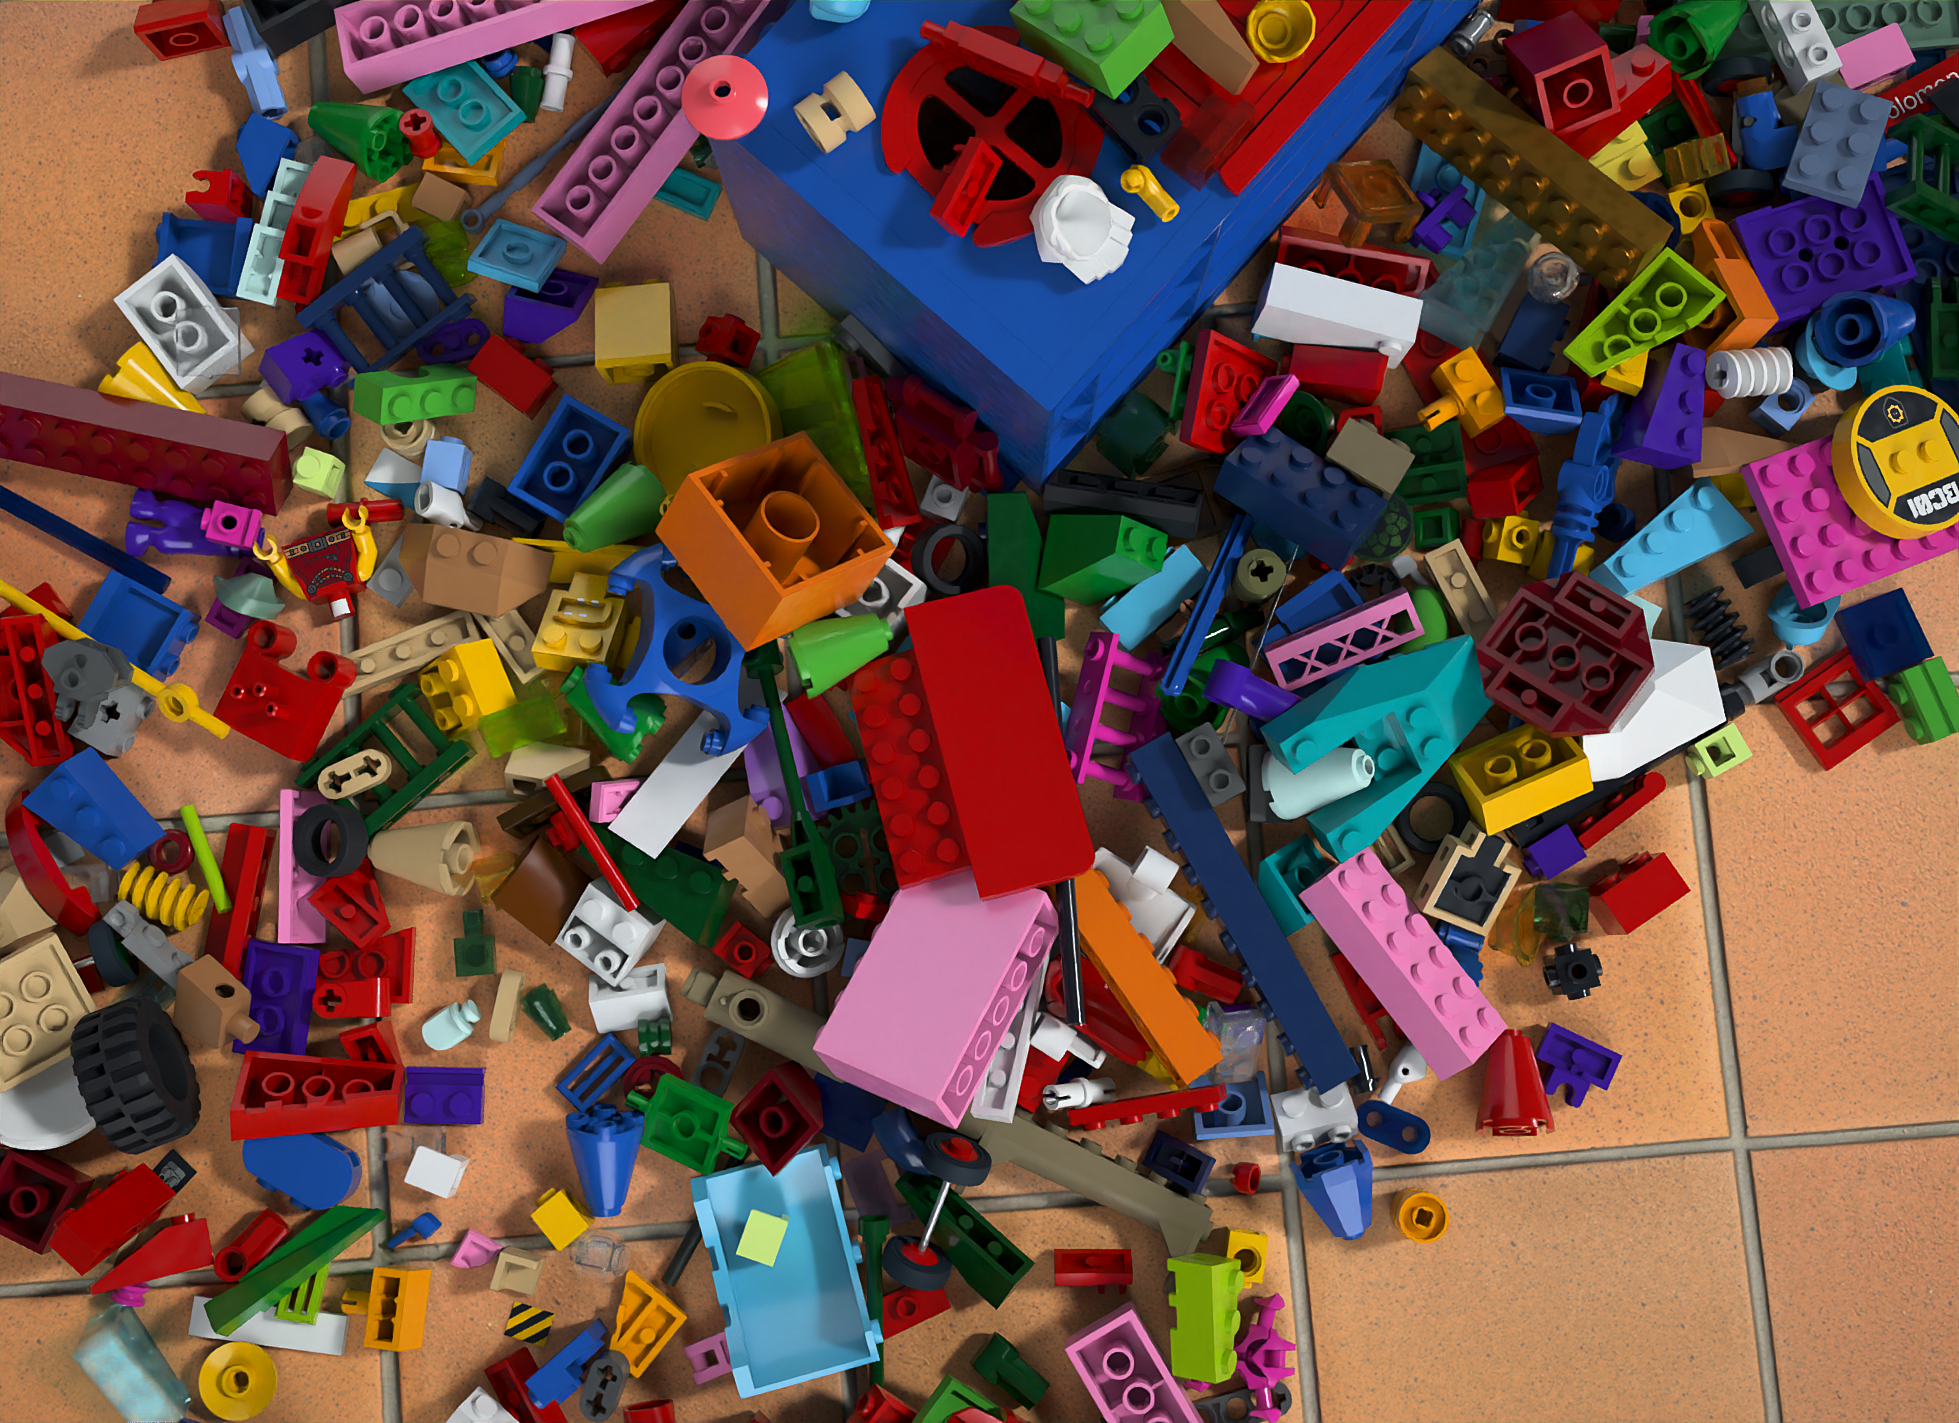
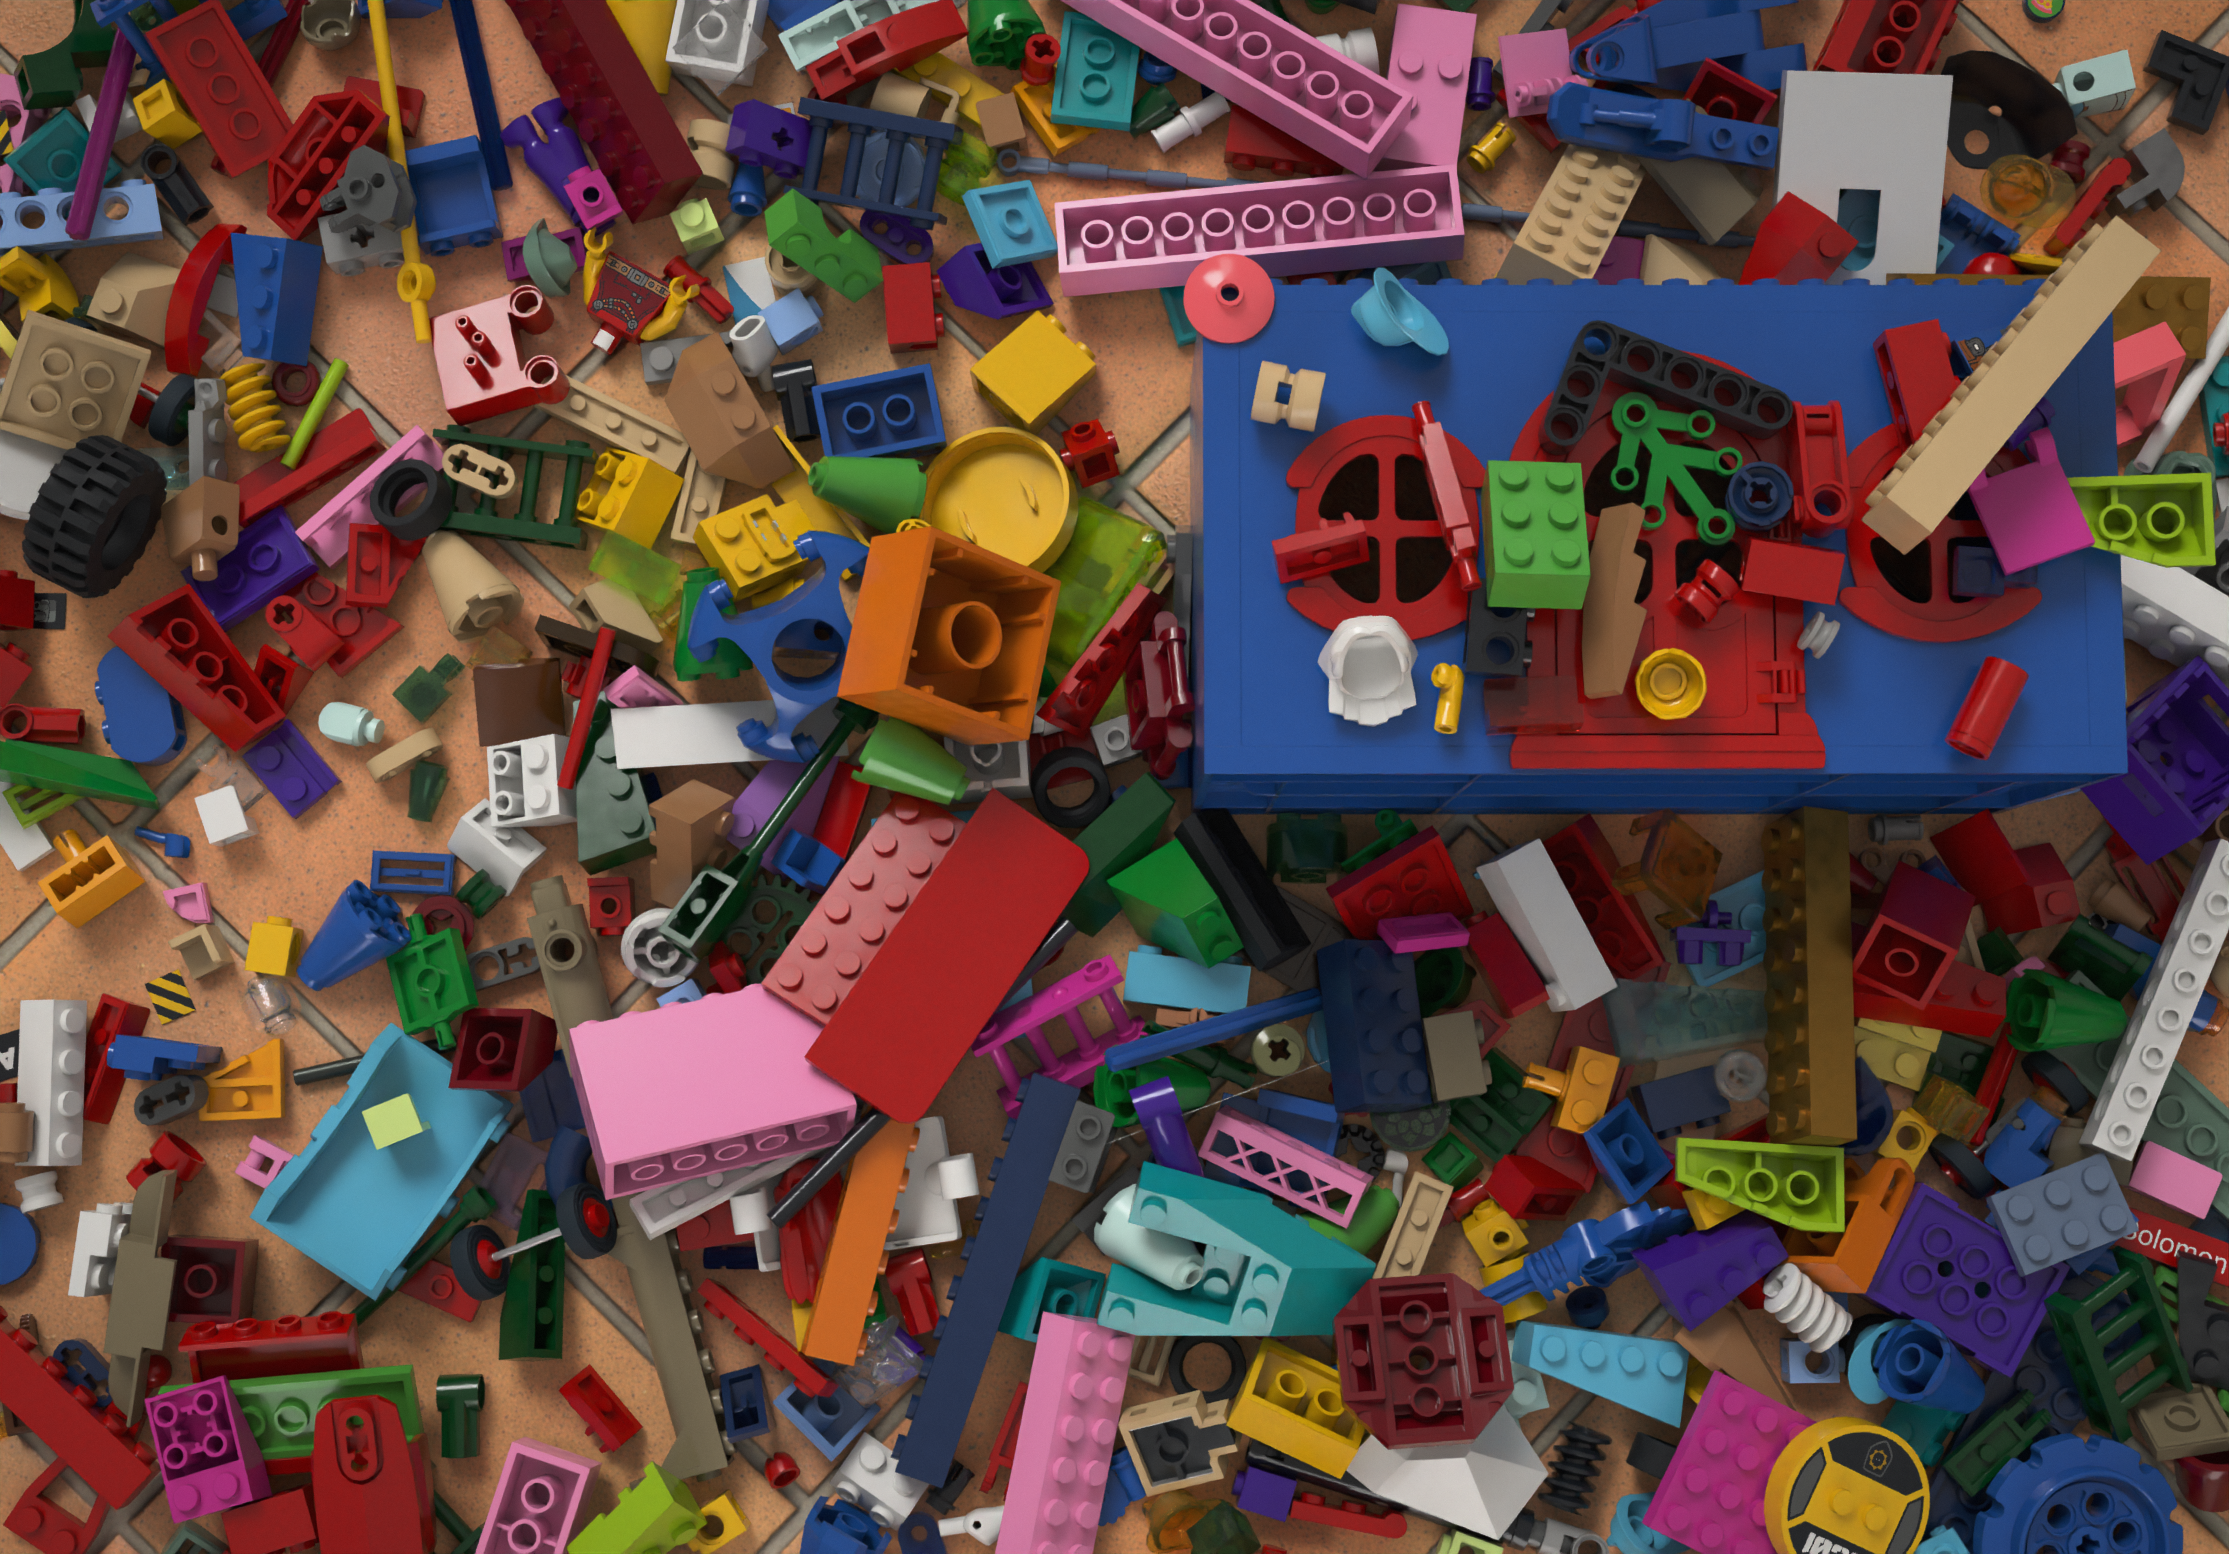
camera: 45 degrees right, 0 degrees up
(1079, 1093) = (729, 1274): white pin -> none

